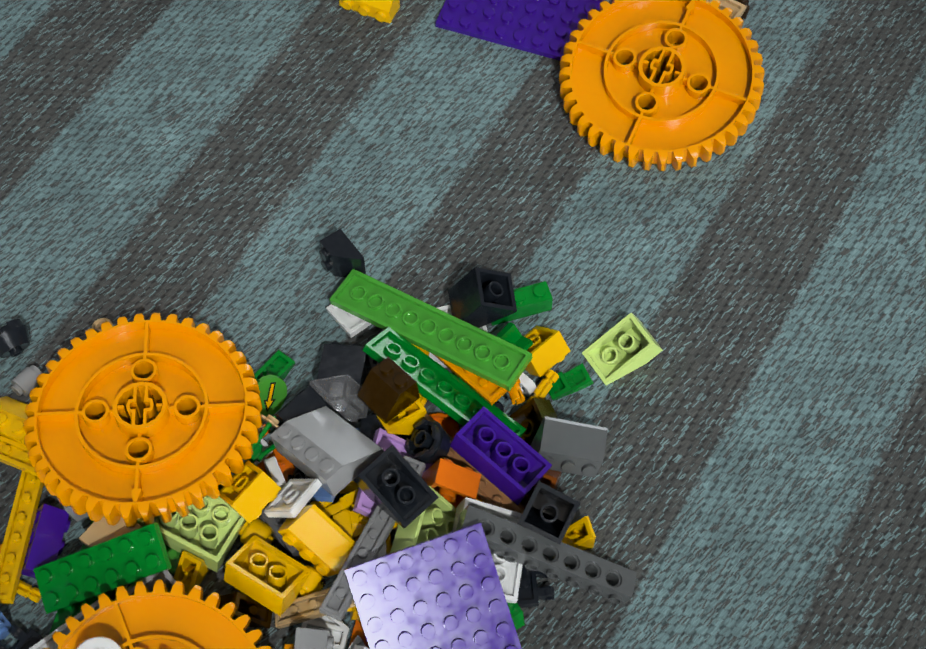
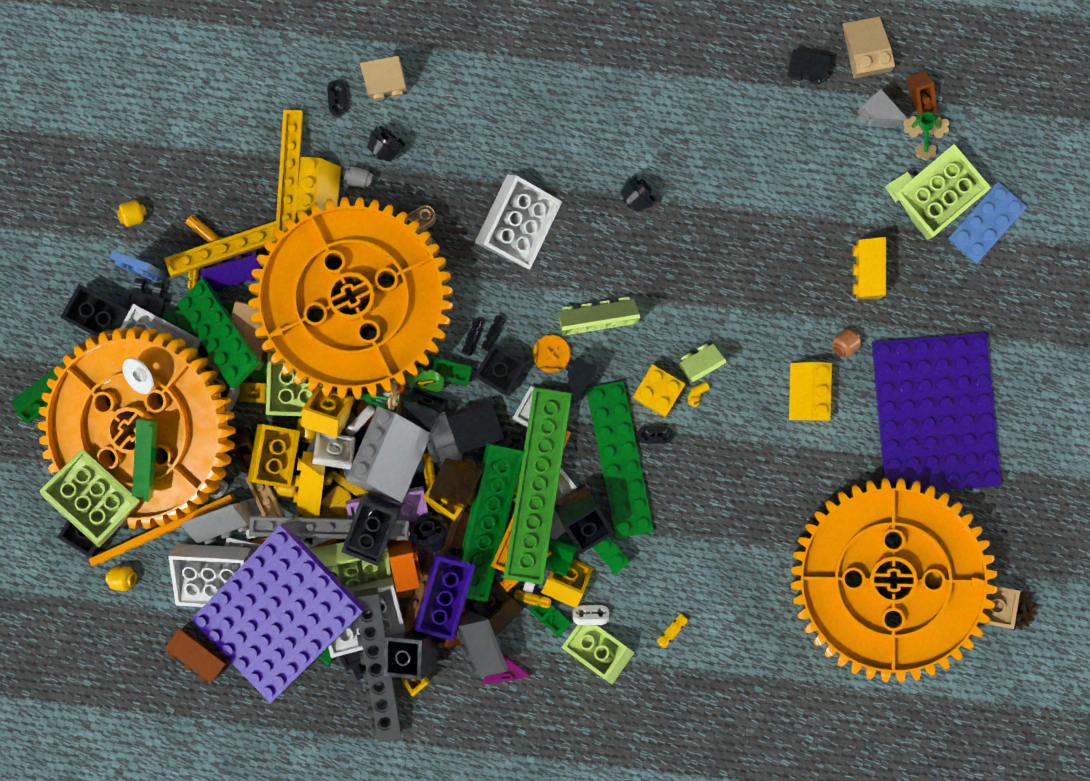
camera: 70 degrees right, 25 degrees up
(158, 255) = (518, 221): none -> white slope
(195, 143) = (637, 194): none -> black cone
(249, 342) = (472, 337): none -> black axle
(255, 322) = (493, 332): none -> black axle
(292, 218) = (598, 317): none -> yellowish green slope
(296, 324) = (500, 370): none -> black brick
(305, 279) = (551, 353): none -> light orange tile
(366, 426) = (429, 471): none -> yellow axle
(383, 153) = (702, 362): none -> yellowish green slope
(390, 199) = (658, 391): none -> yellow brick
(408, 174) = (695, 393): none -> yellow arm
(426, 40) = (846, 343): none -> nougat head
(432, 258) = (619, 460): none -> green plate
(435, 223) = (655, 429): none -> black beam
(456, 82) = (810, 391): none -> yellow slope
(583, 343) = (590, 615): none -> white beam
(611, 448) = (514, 672): none -> magenta tile
(631, 279) = (671, 632): none -> yellow axle

